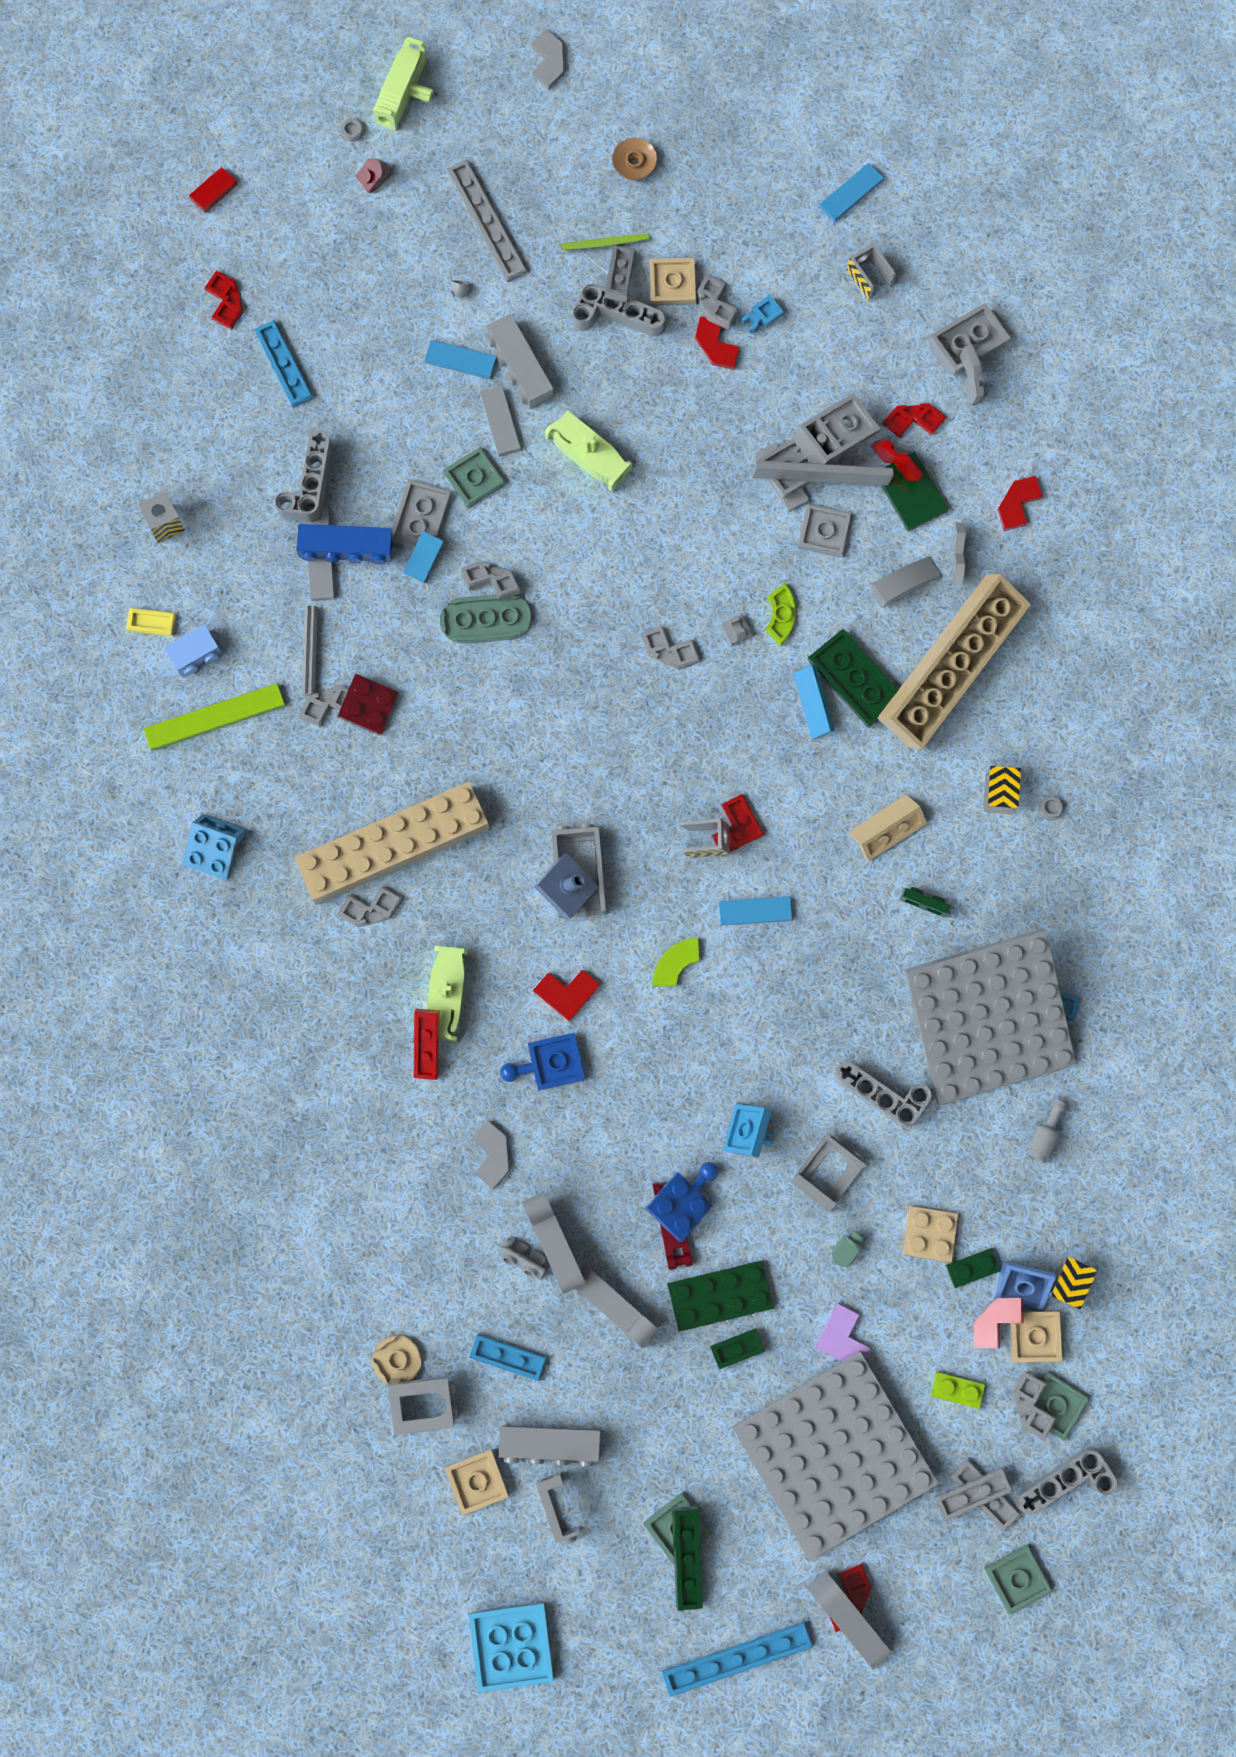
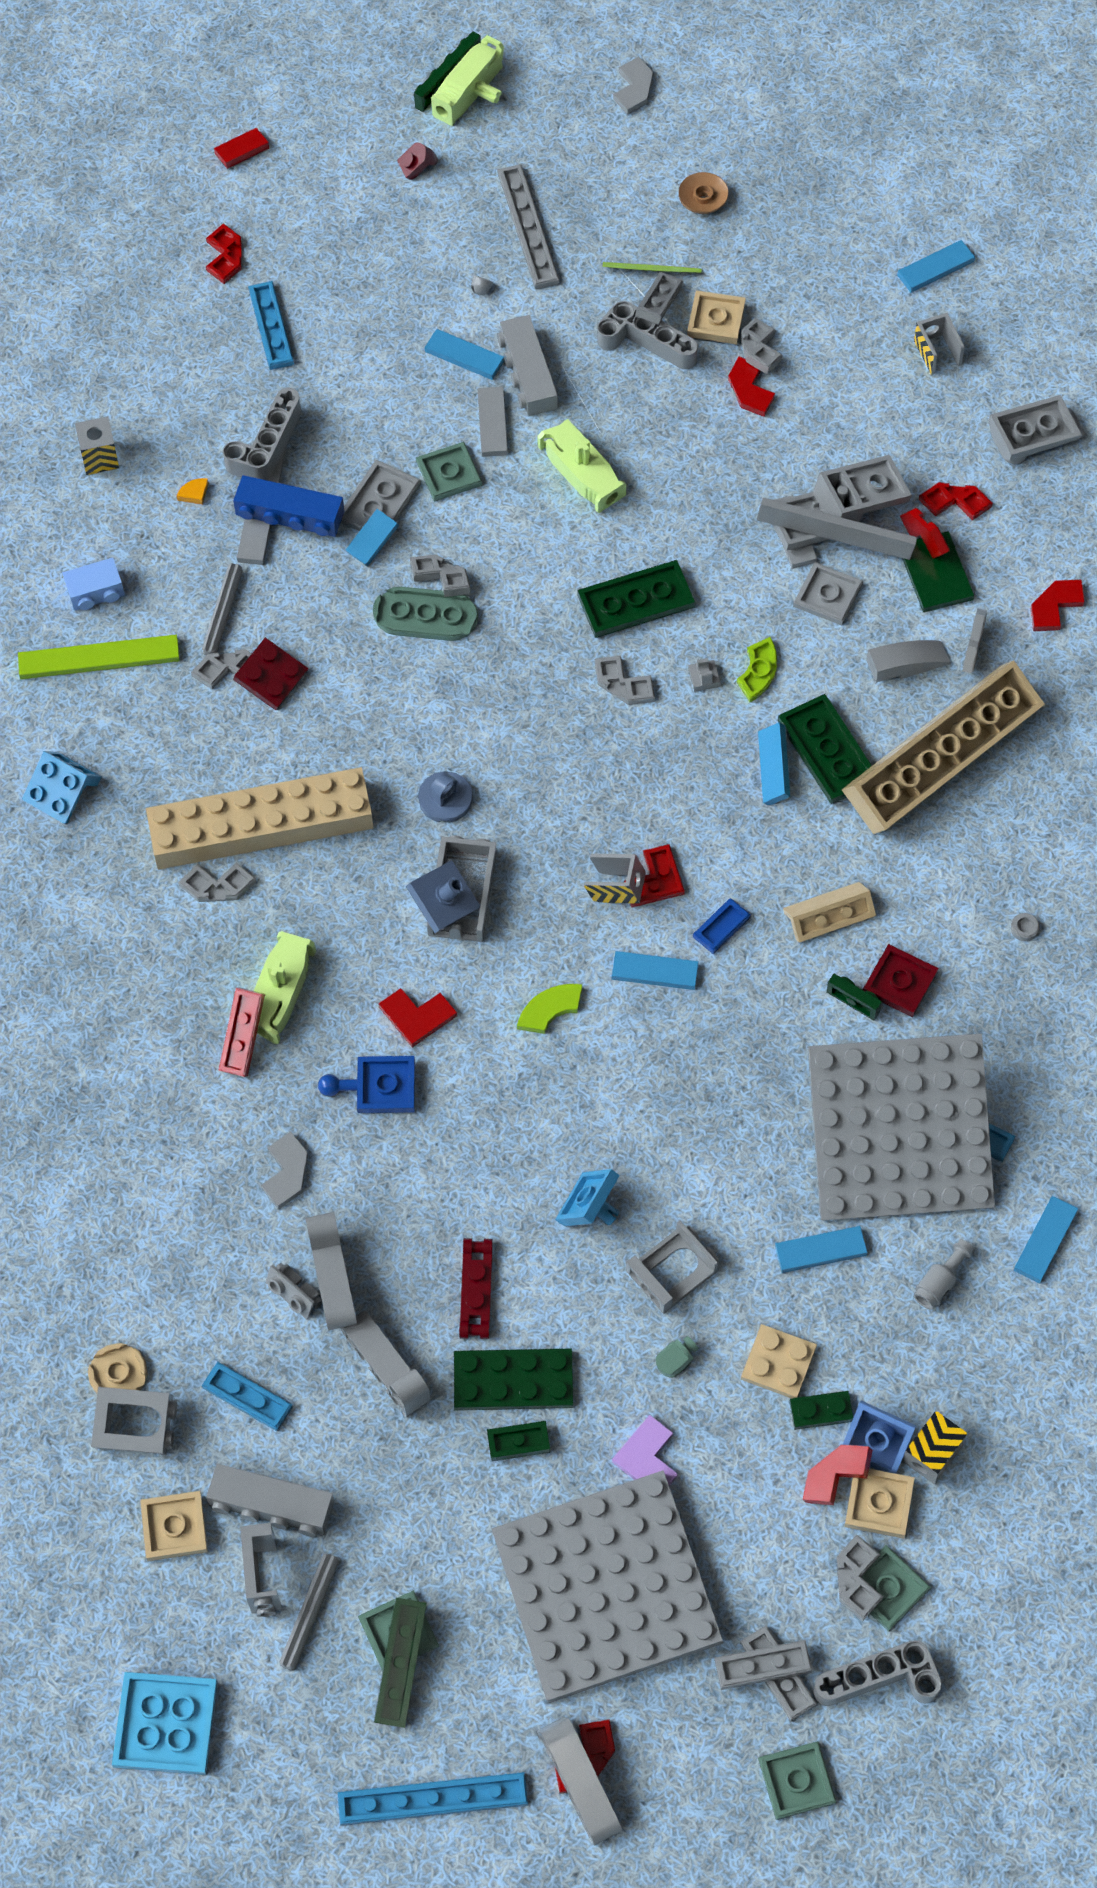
camera: 15 degrees right, 15 degrees down
(151, 622) = (56, 550): light yellow tile -> none
(256, 541) = (193, 491): none -> light orange tile
(351, 130) = (405, 117): light grey tile -> none
(373, 85) = (425, 91): none -> dark green plate
(543, 788) = (445, 796): none -> sand blue tile
(602, 1528) = (309, 1611): none -> light grey axle
(663, 569) = (636, 598): none -> dark green plate
(680, 1204) = (490, 1264): blue plate -> none
(763, 312) = (811, 364): dark azure plate -> none
(801, 859) = (721, 926): none -> blue tile
(879, 1090) = (755, 1189): light grey beam -> none
(943, 1129) = (820, 1249): none -> dark azure tile
(957, 1390) = (772, 1545): lime plate -> none
(959, 878) = (901, 980): none -> dark red plate
(973, 368) = (1030, 451): light grey tile -> none
(1002, 789) = (970, 893): piece -> none
(1122, 1082) = (1045, 1239): none -> dark azure tile

